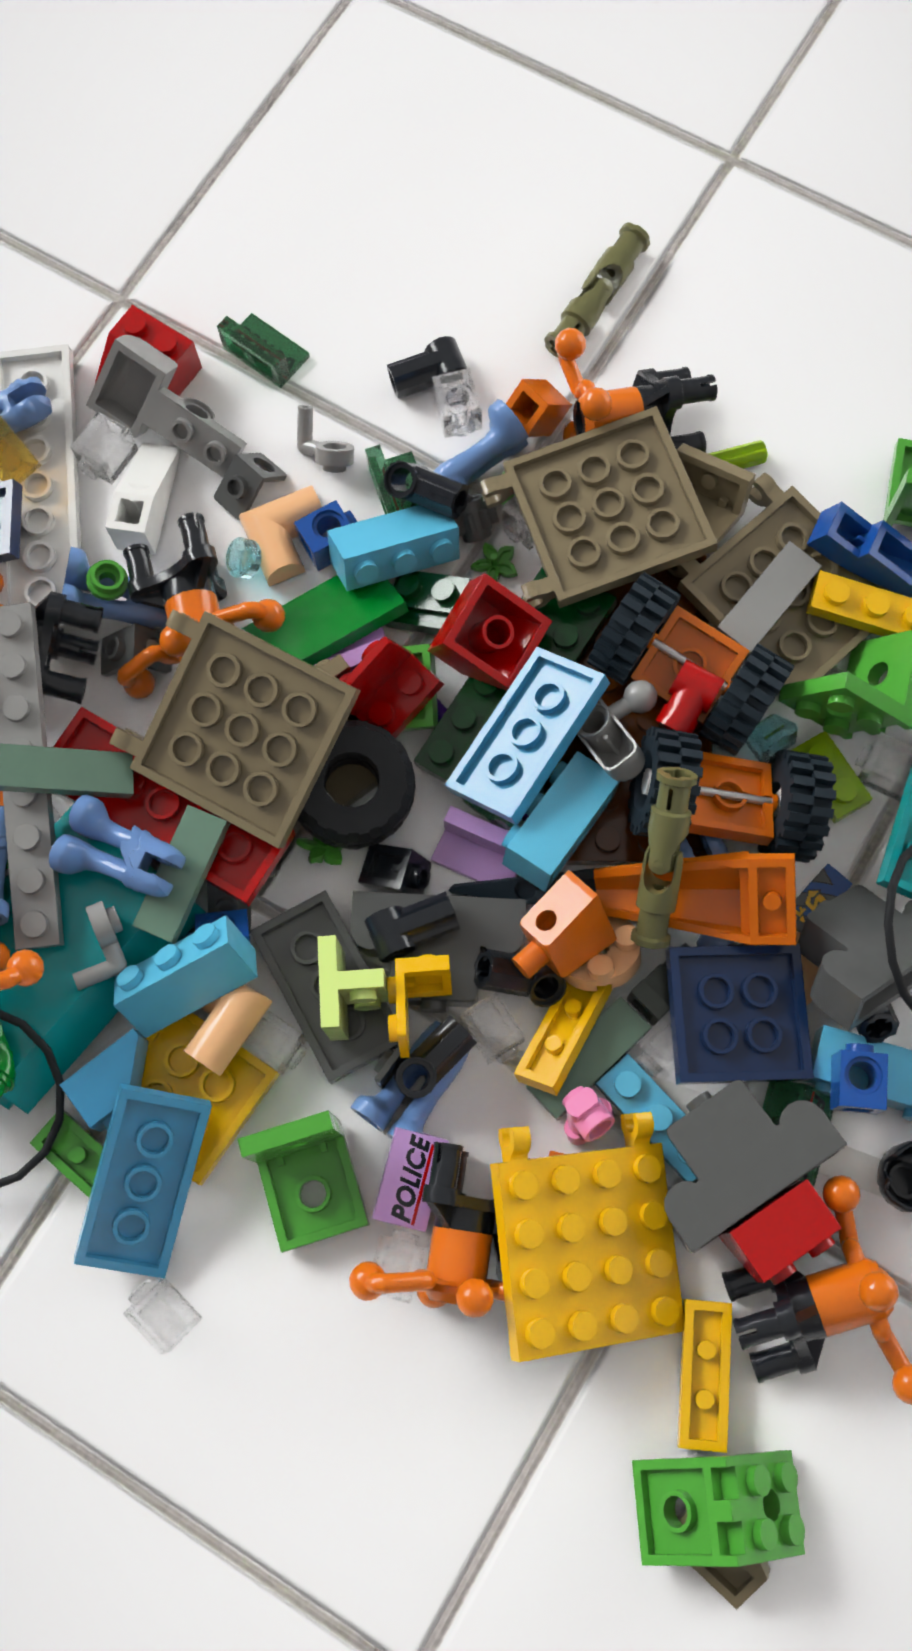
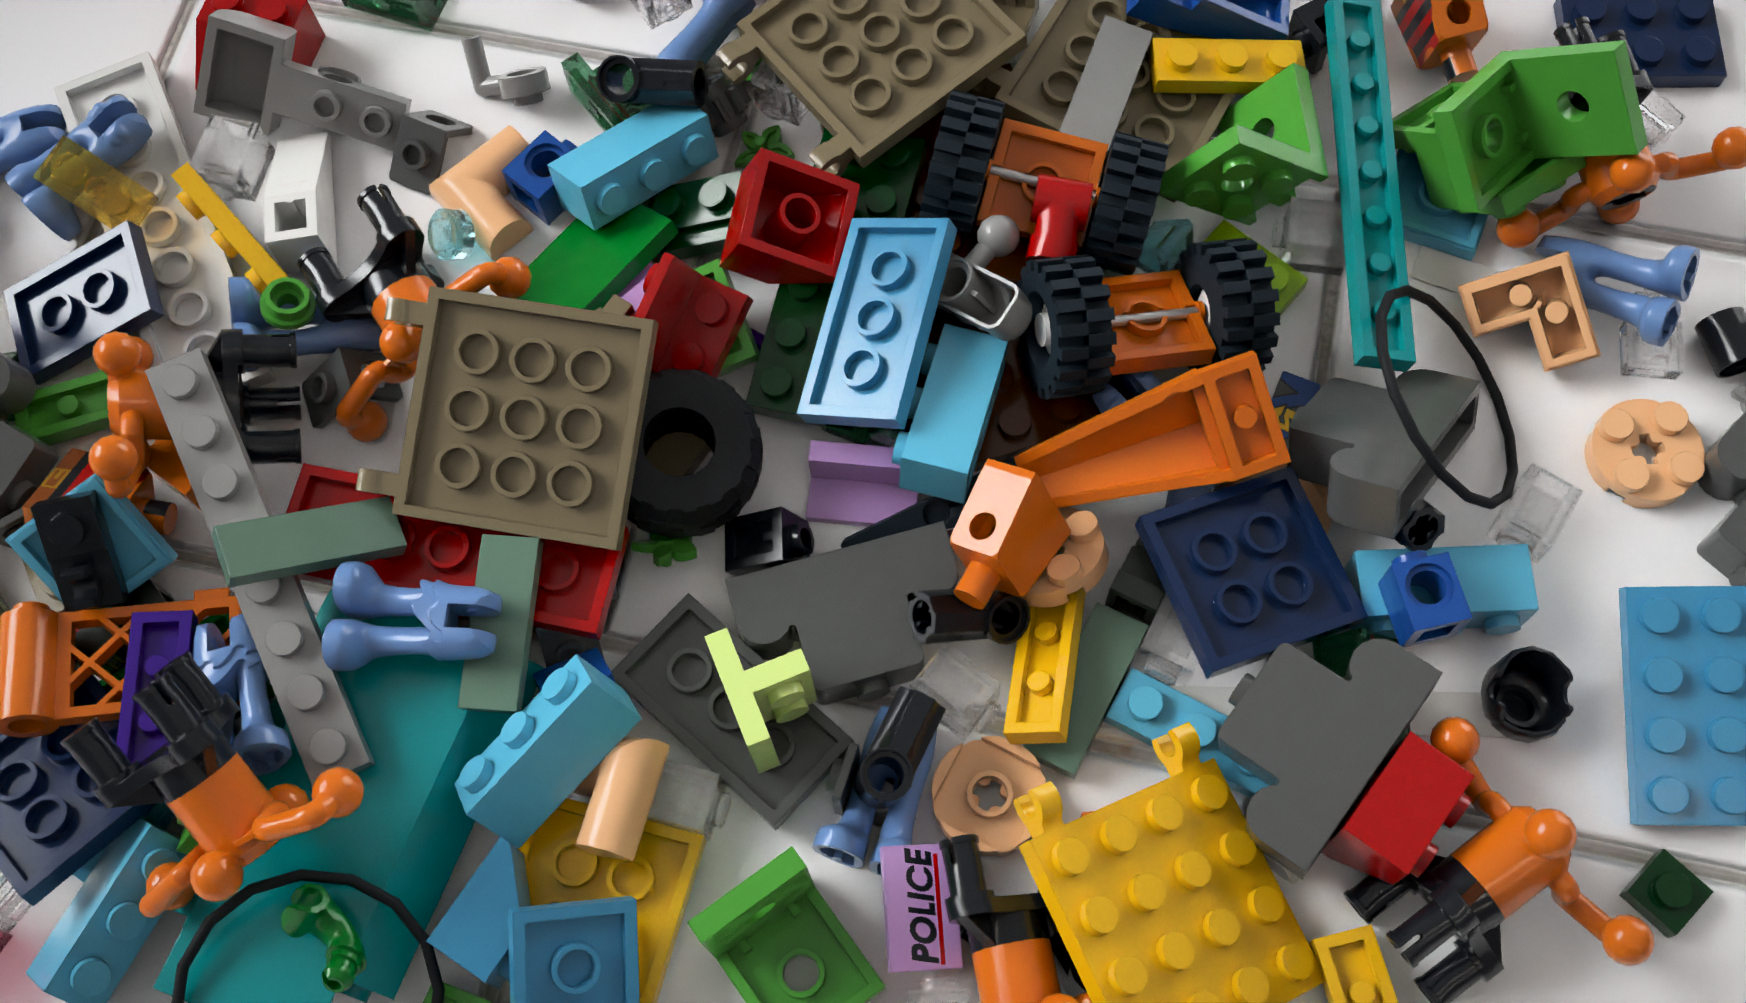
camera: 20 degrees left, 5 degrees down
(85, 508) = (230, 232): none -> yellow plate
(105, 926) = (423, 718): light grey plate -> none
(399, 930) = (802, 605): black piece -> none
(414, 978) = (842, 656): yellow bracket -> none
(489, 1086) = (978, 764): none -> light nougat plate
(586, 1116) = (1111, 756): bright pink plate -> none
(666, 831) = (1092, 369): olive piece -> none

